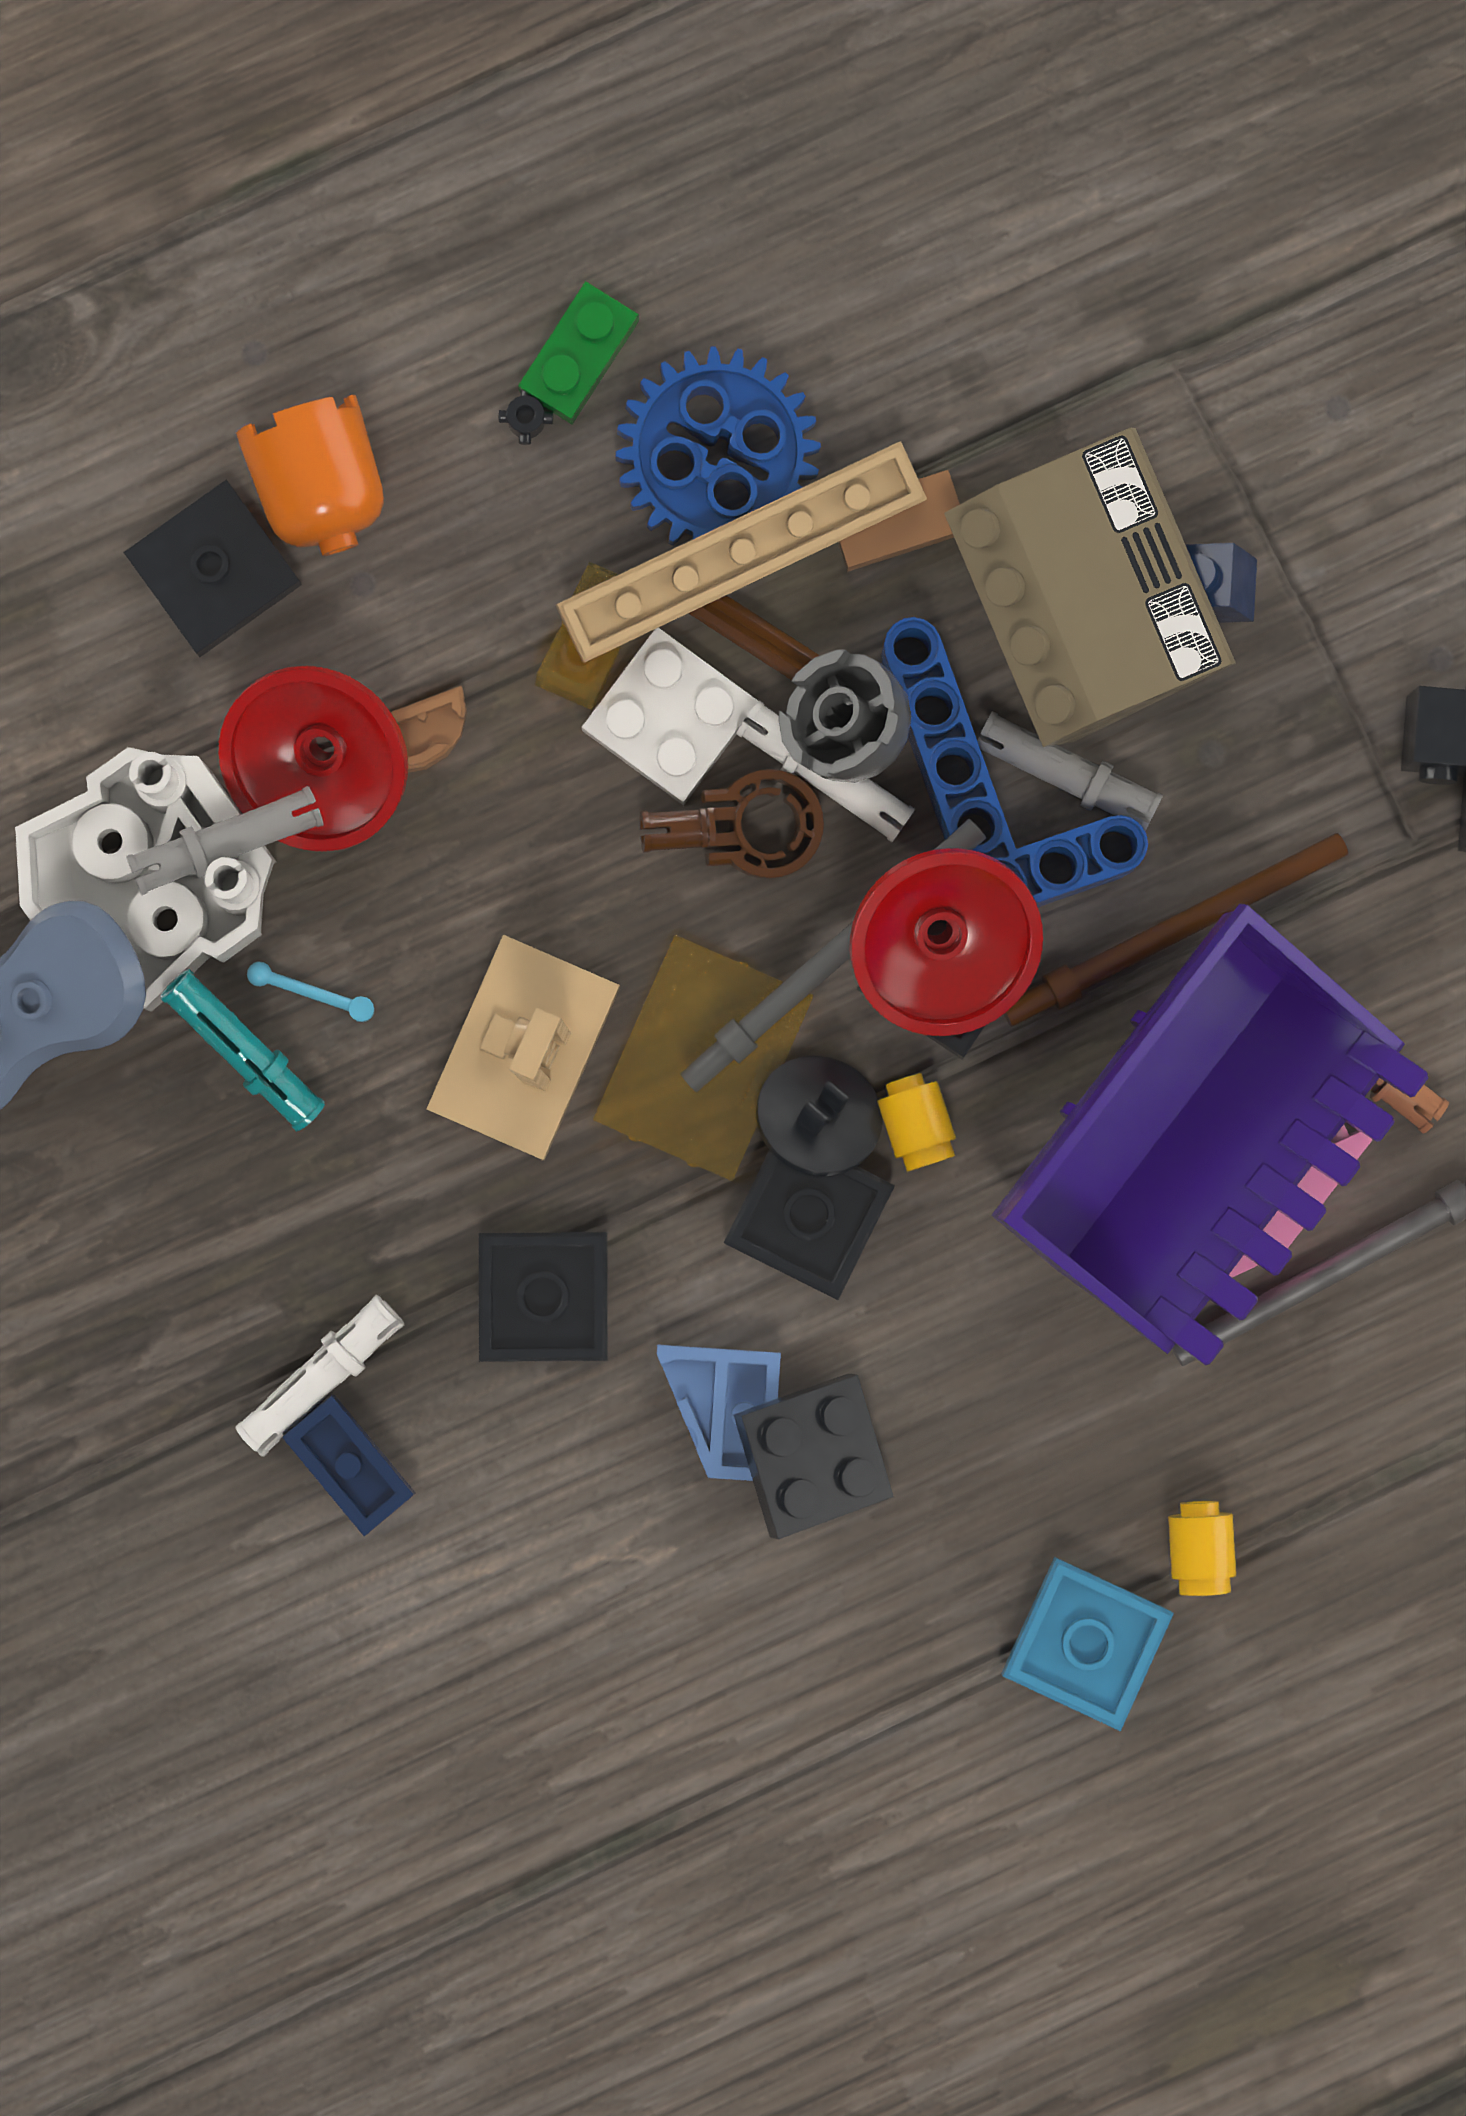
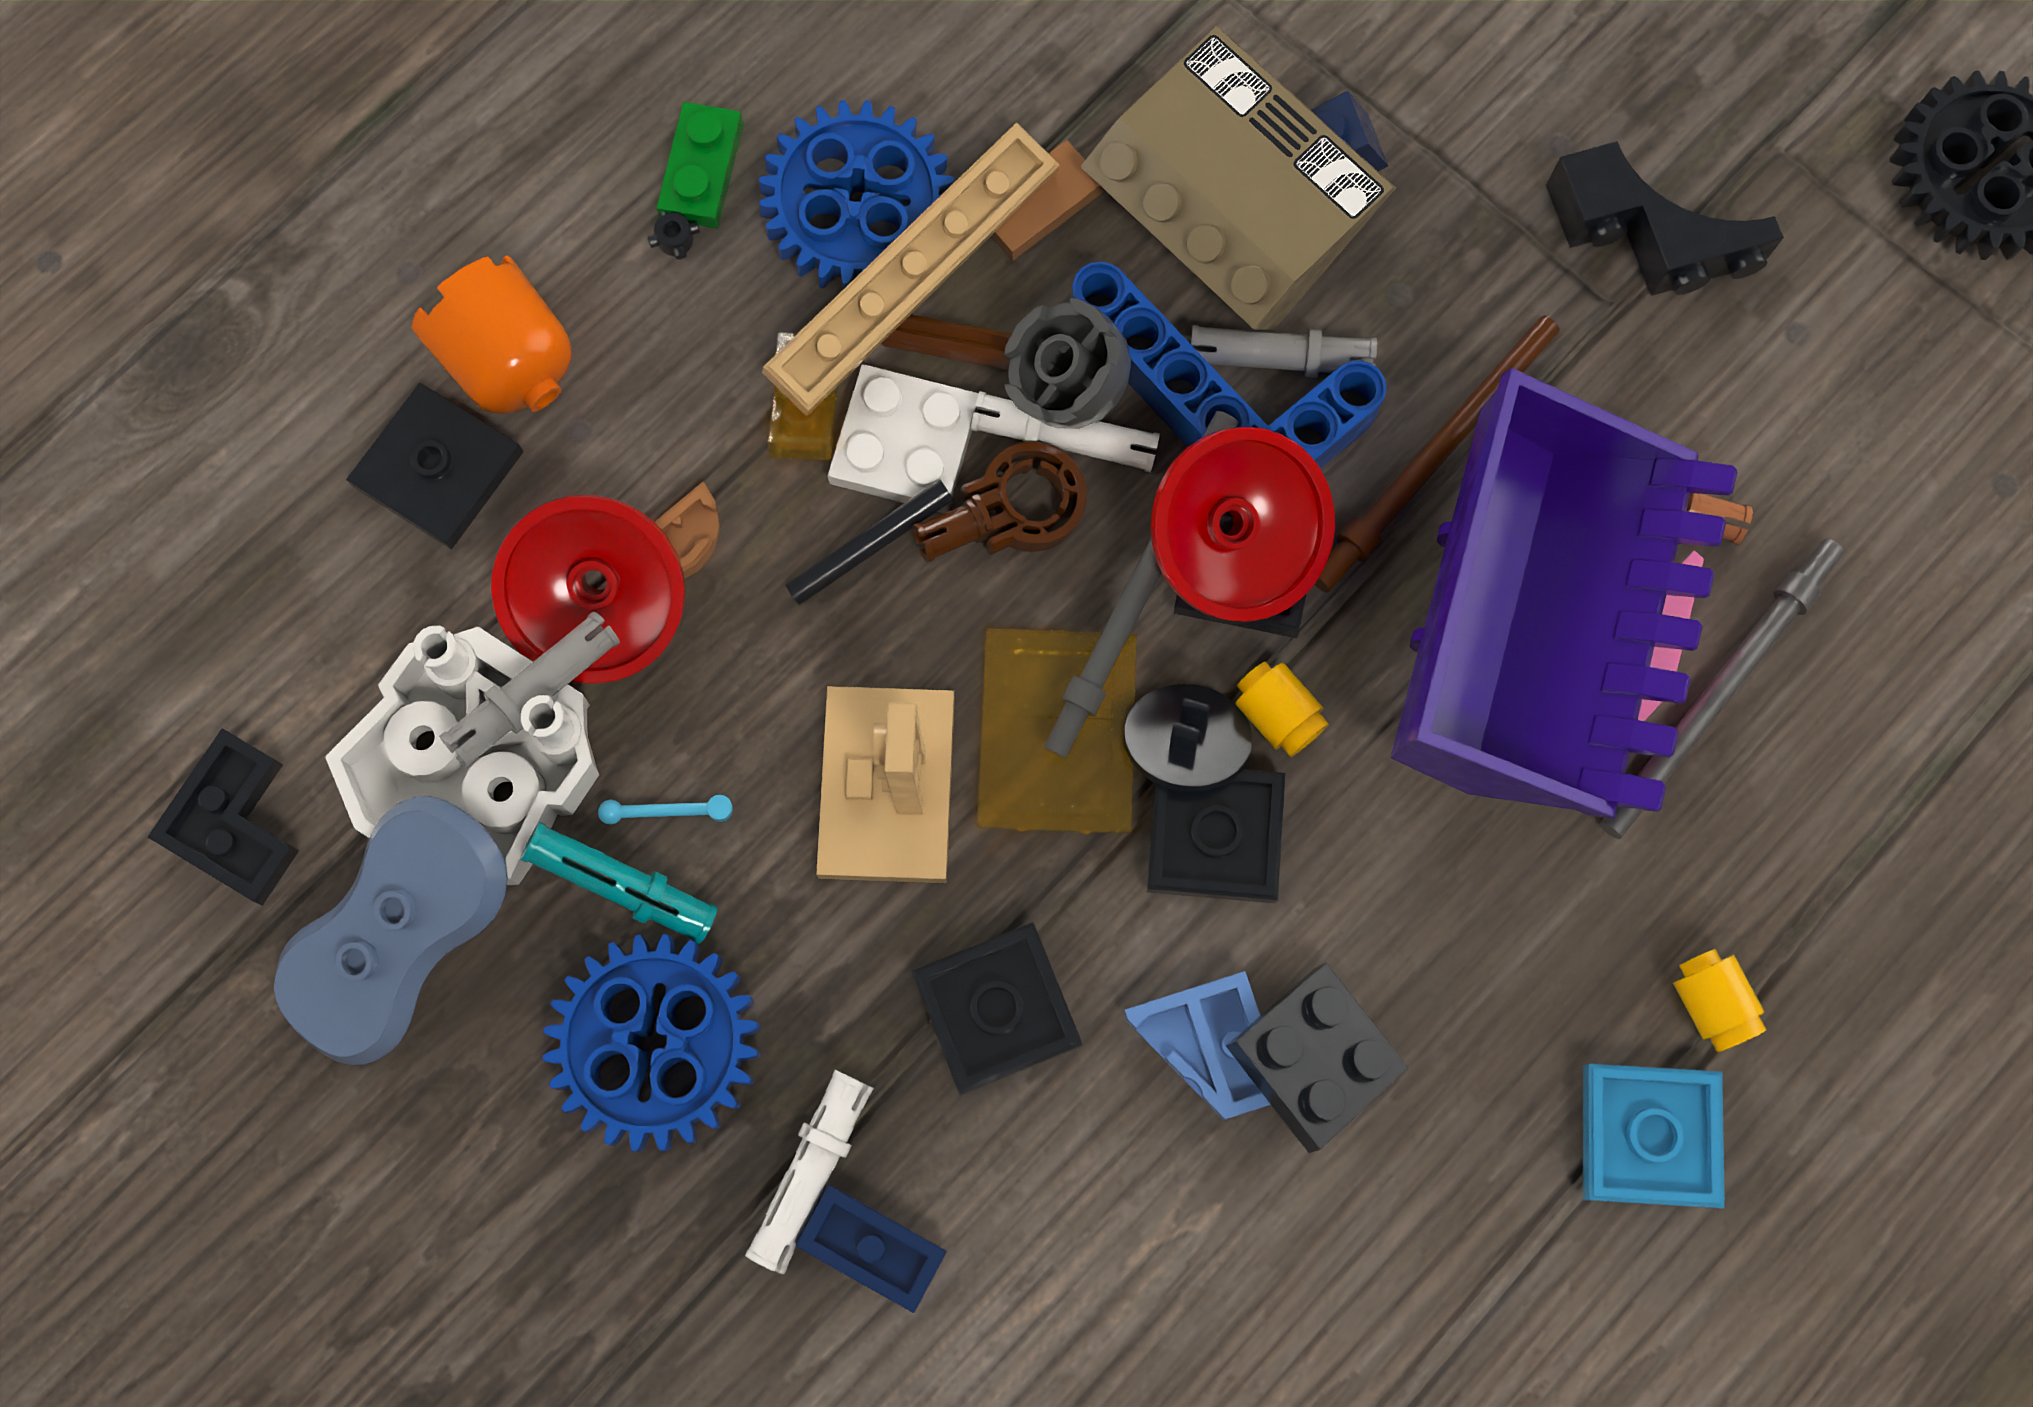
camera: 20 degrees left, 10 degrees down
(170, 1177) = (592, 1037): none -> blue gear
(596, 809) = (869, 542): none -> black bar

